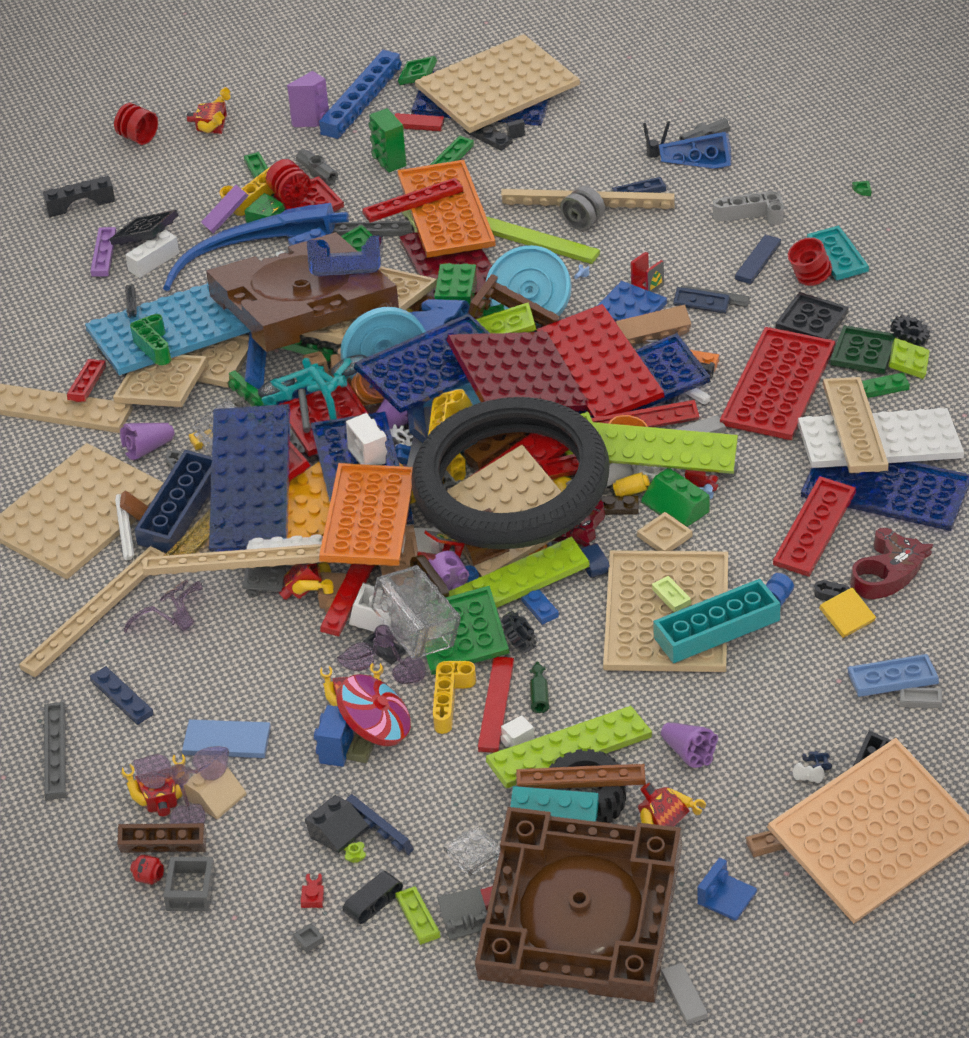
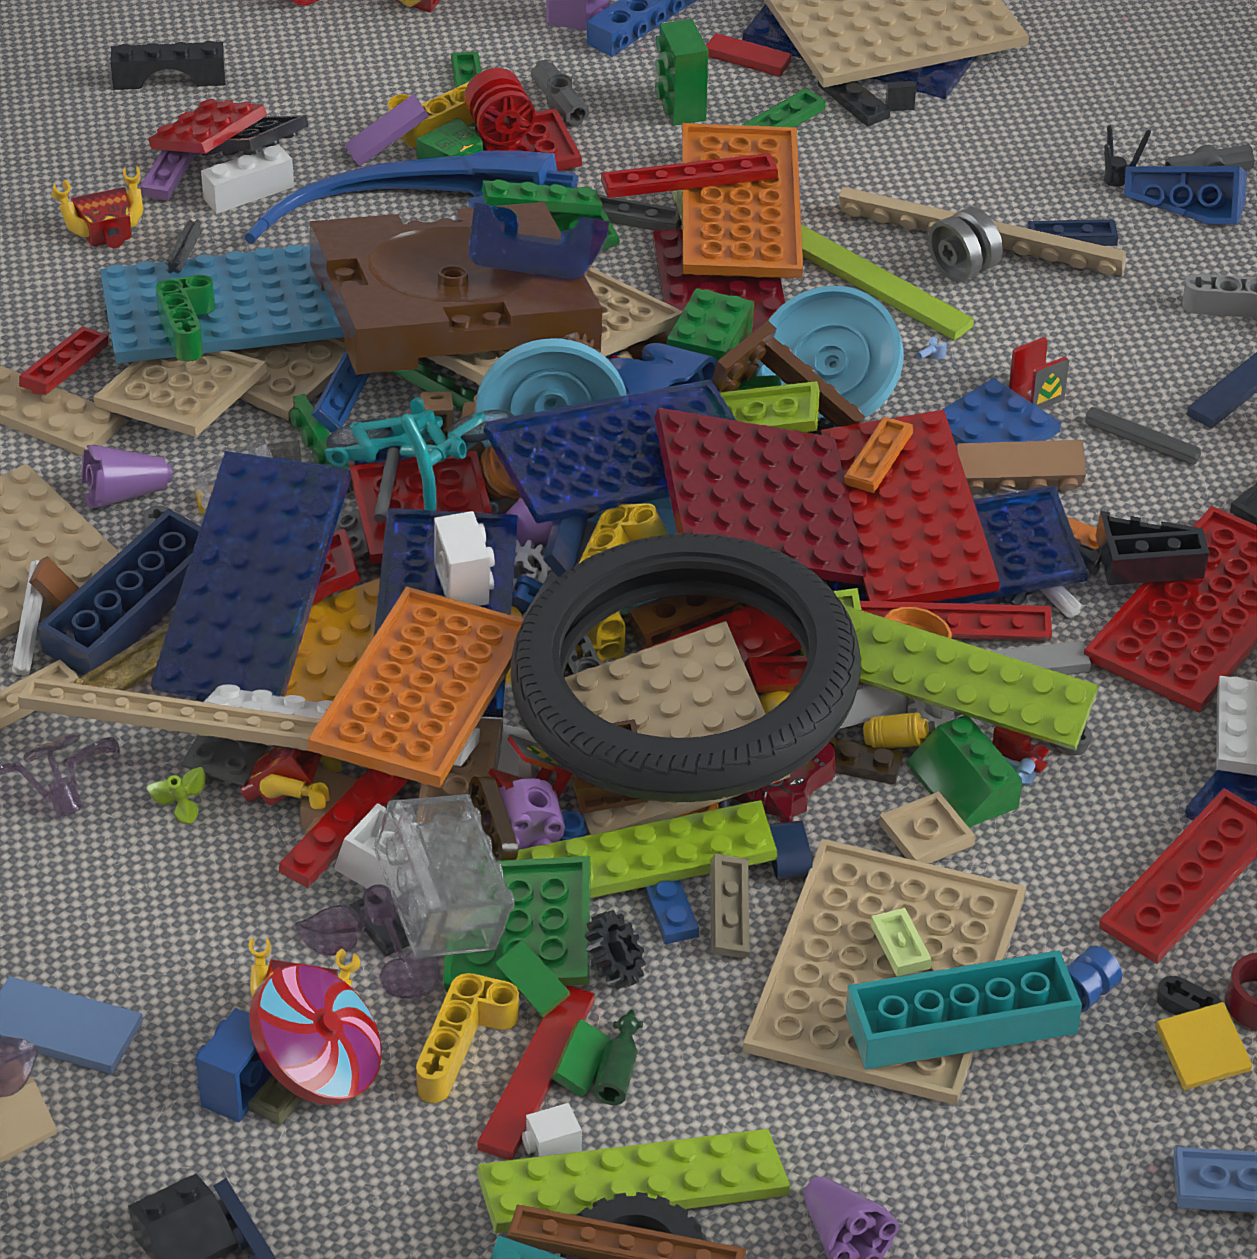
camera: 10 degrees right, 0 degrees up
(74, 292) = (103, 215): none -> torso
(119, 227) = (207, 126): none -> red plate
(248, 598) = (178, 790): none -> lime plant
(343, 228) = (556, 197): none -> green plate
(479, 656) = (532, 978): none -> green tile
(518, 692) = (580, 1058): none -> green tile
(572, 596) = (729, 906): none -> dark tan plate
(574, 336) = (878, 454): none -> orange tile
(701, 300) = (1118, 438): dark blue tile -> none
(740, 359) = (1150, 552): none -> black wedge

